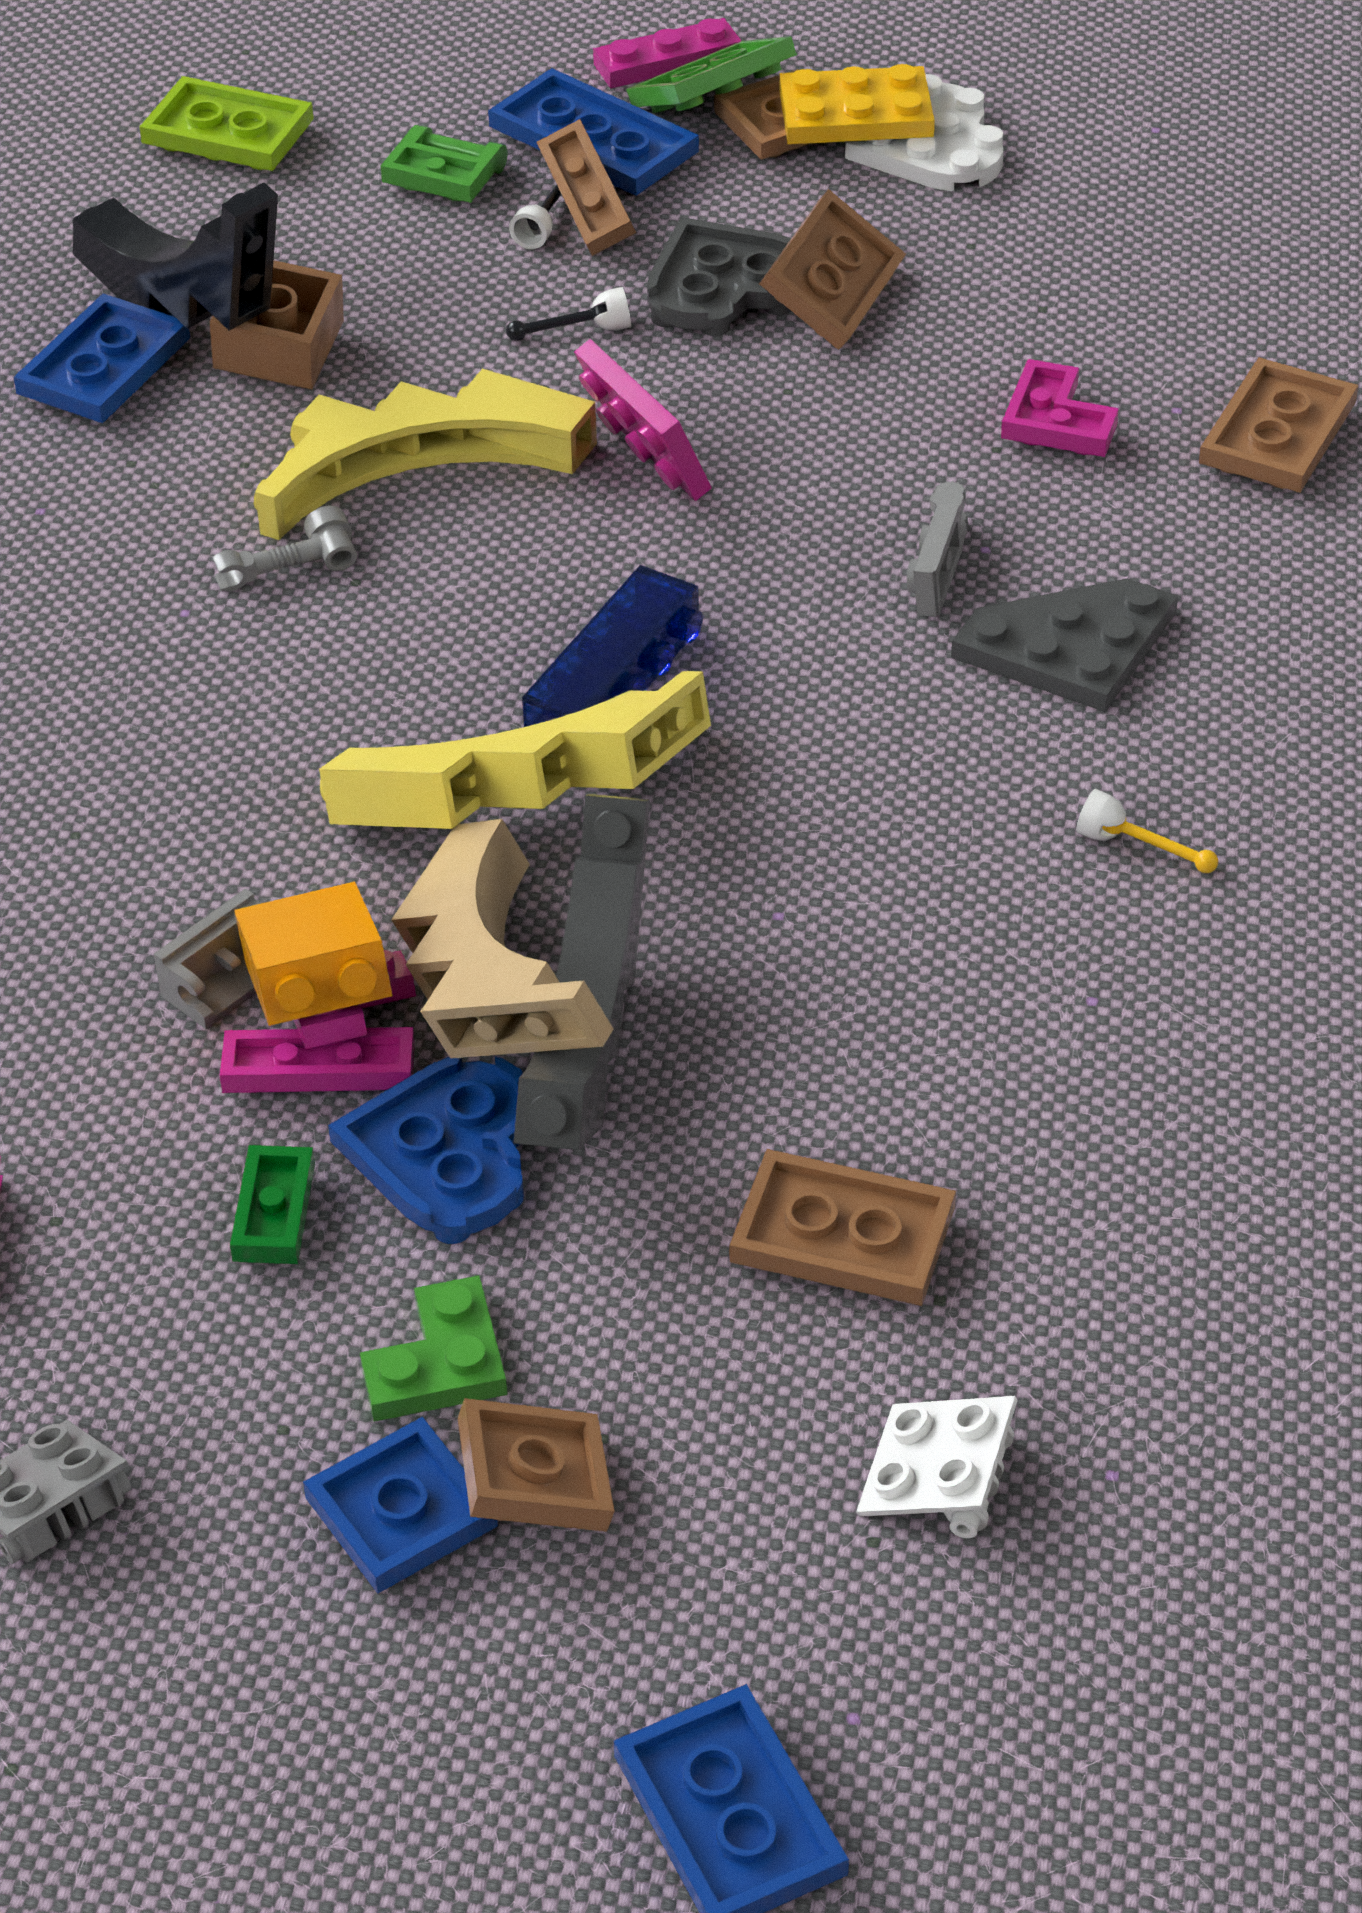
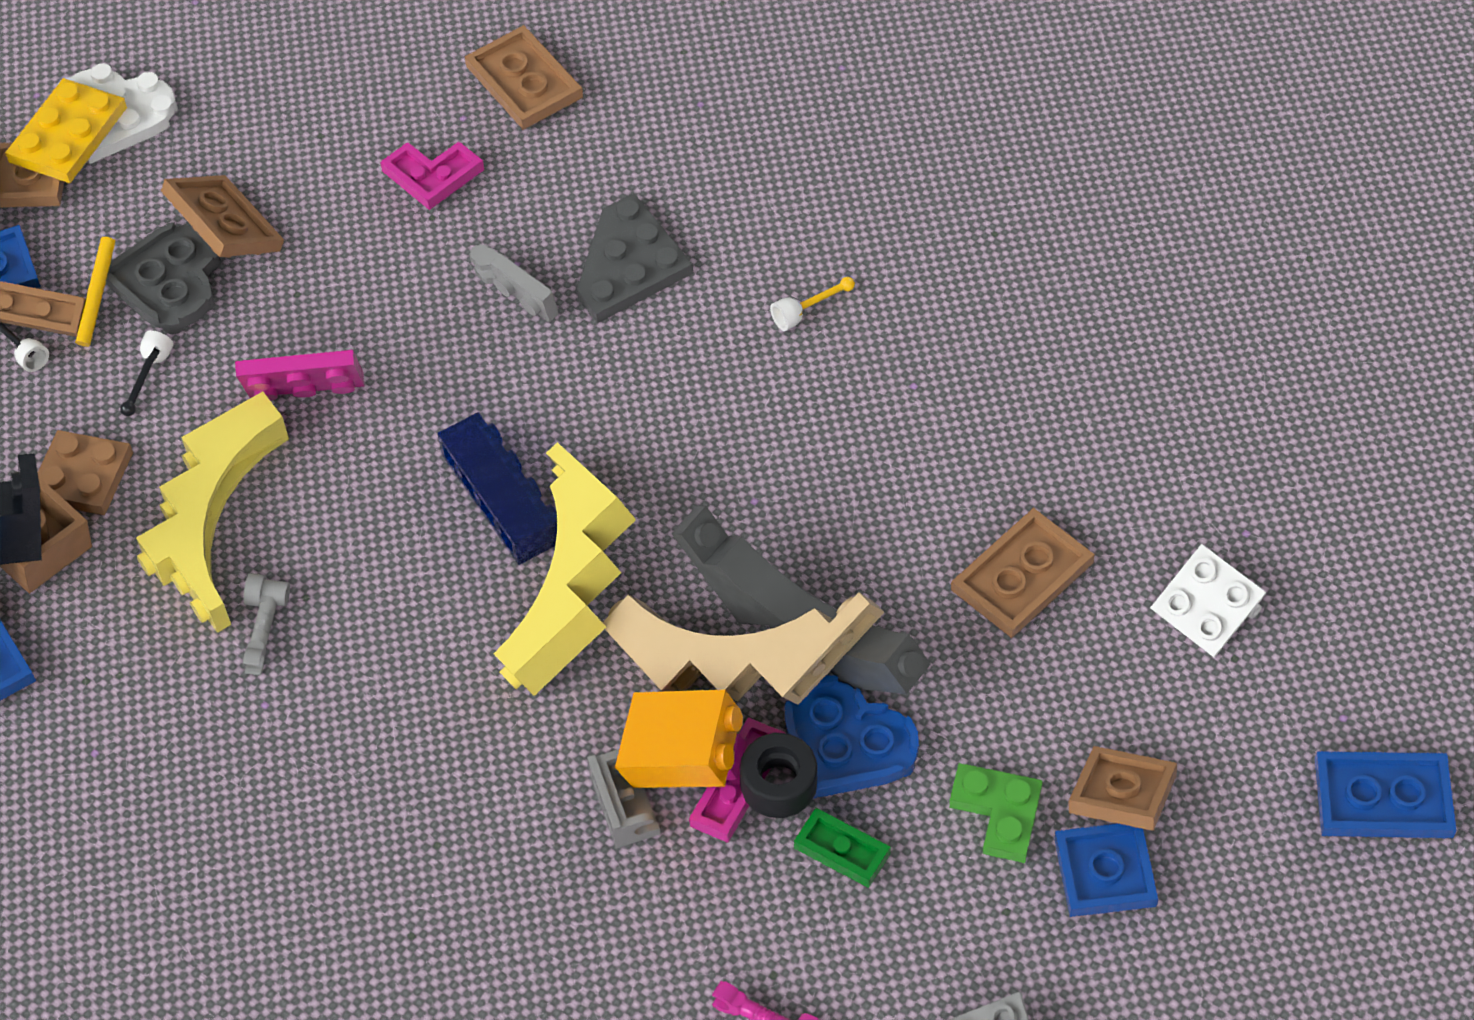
camera: 60 degrees left, 10 degrees up
(320, 1047) = (778, 751): none -> black tyre
(403, 334) = (85, 469): none -> medium nougat plate
(649, 227) = (95, 291): none -> yellow bar

